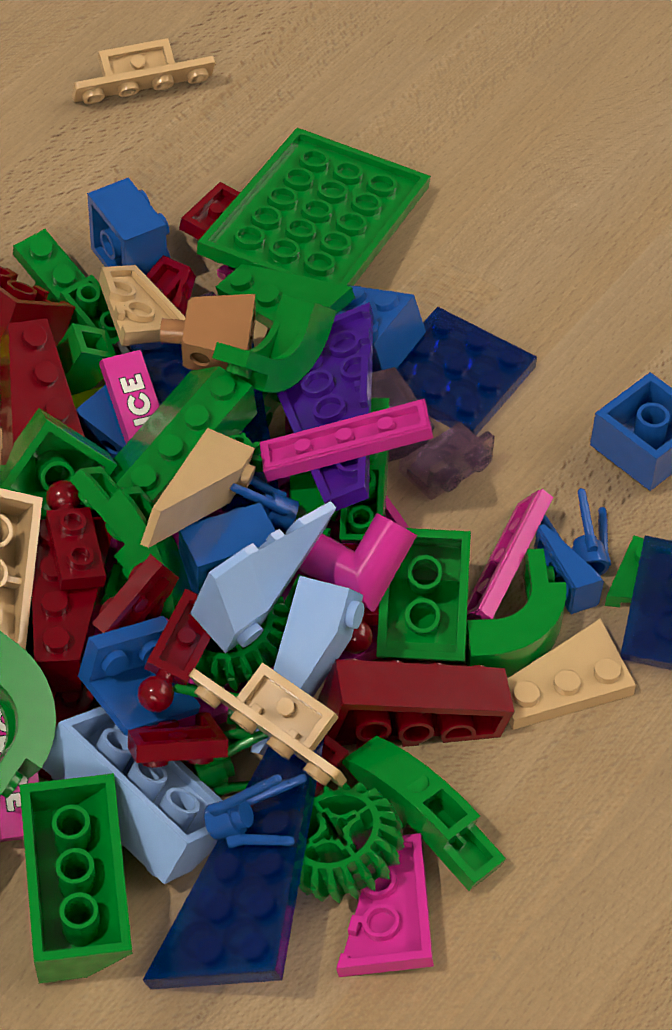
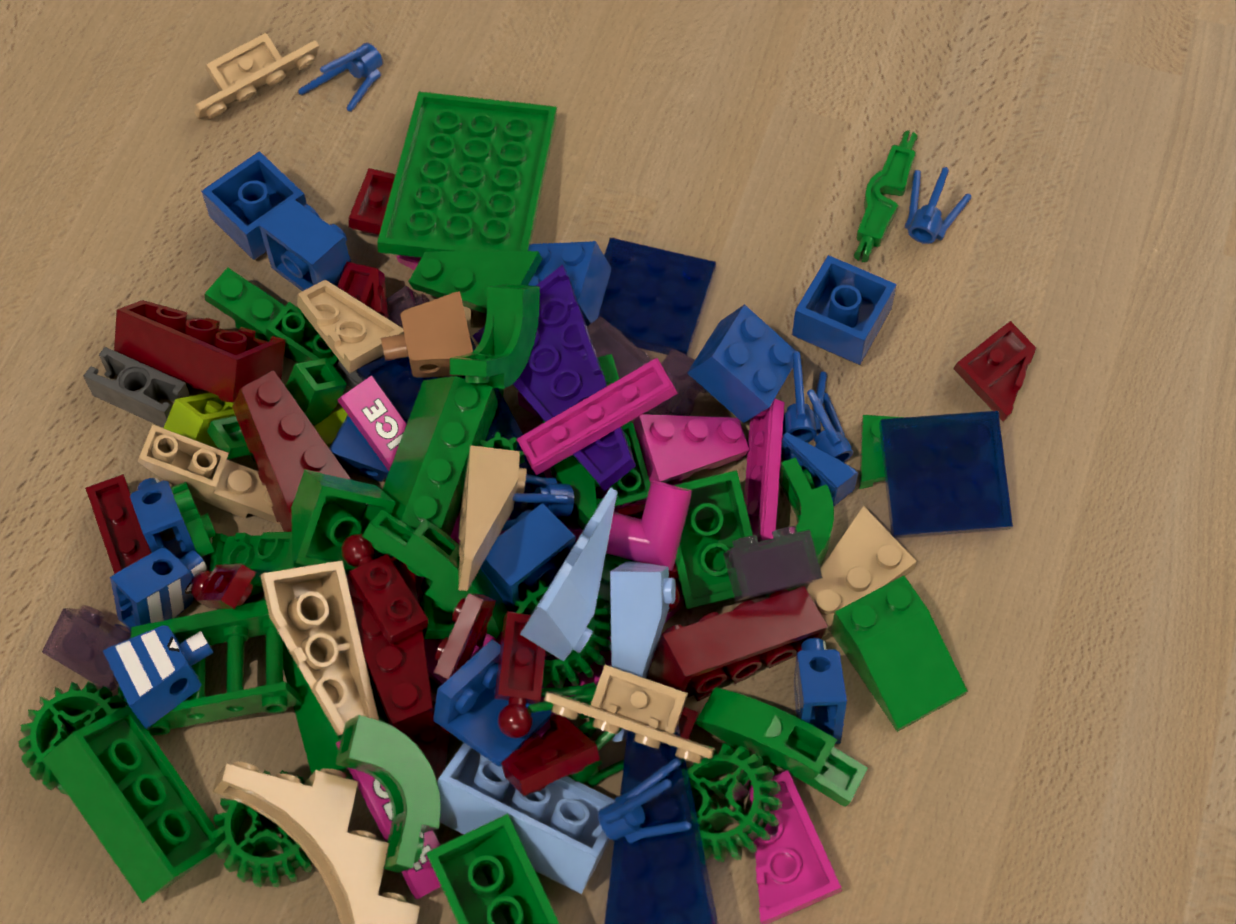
camera: 15 degrees left, 10 degrees up
(86, 169) = (247, 198): none -> blue brick
(253, 90) = (360, 63): none -> blue plant
(431, 502) = (686, 444): none -> dark pink wing
(475, 631) = (772, 564): none -> brick
(487, 754) = (820, 683): none -> blue torso
(523, 448) = (743, 364): none -> blue brick
(565, 517) = (799, 418): none -> blue plant
(581, 762) = (898, 653): none -> green slope

